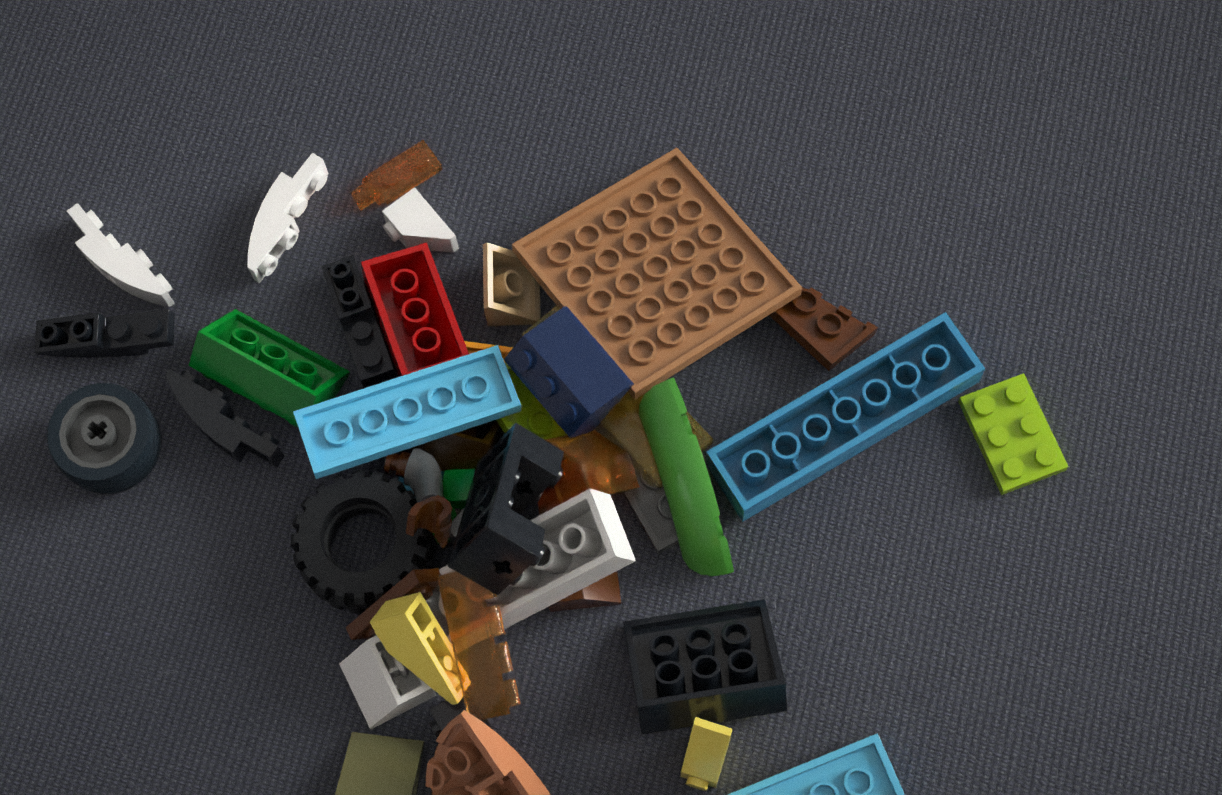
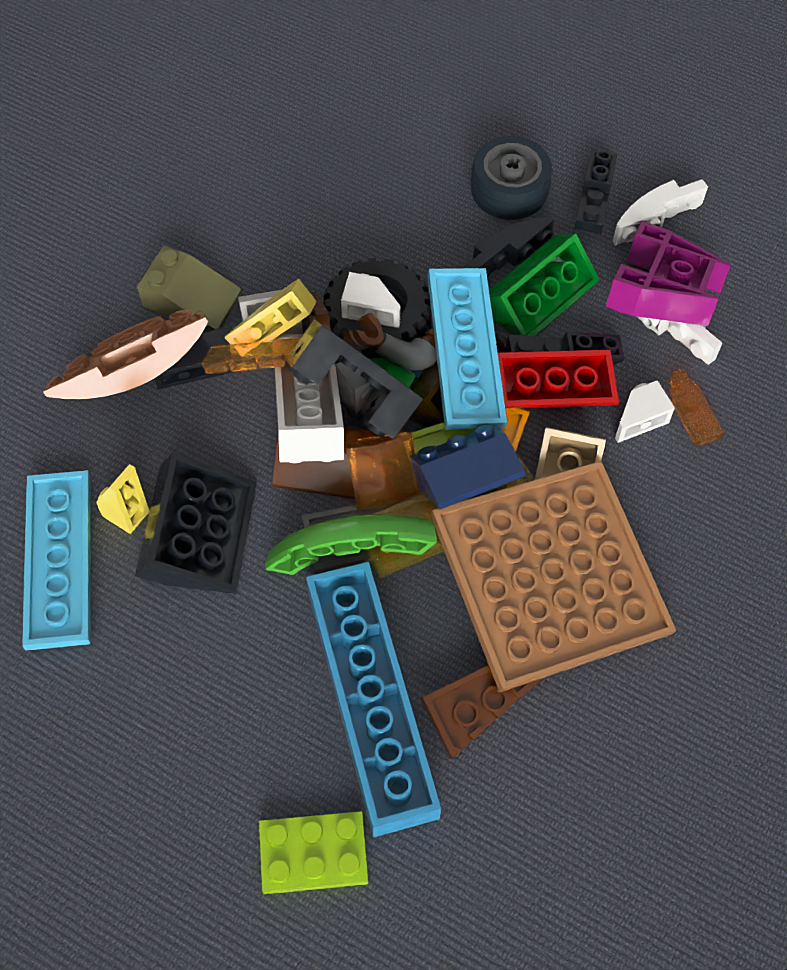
camera: 100 degrees right, 10 degrees down
(235, 209) = (675, 279): none -> magenta wedge
(372, 535) = (368, 295): none -> white slope

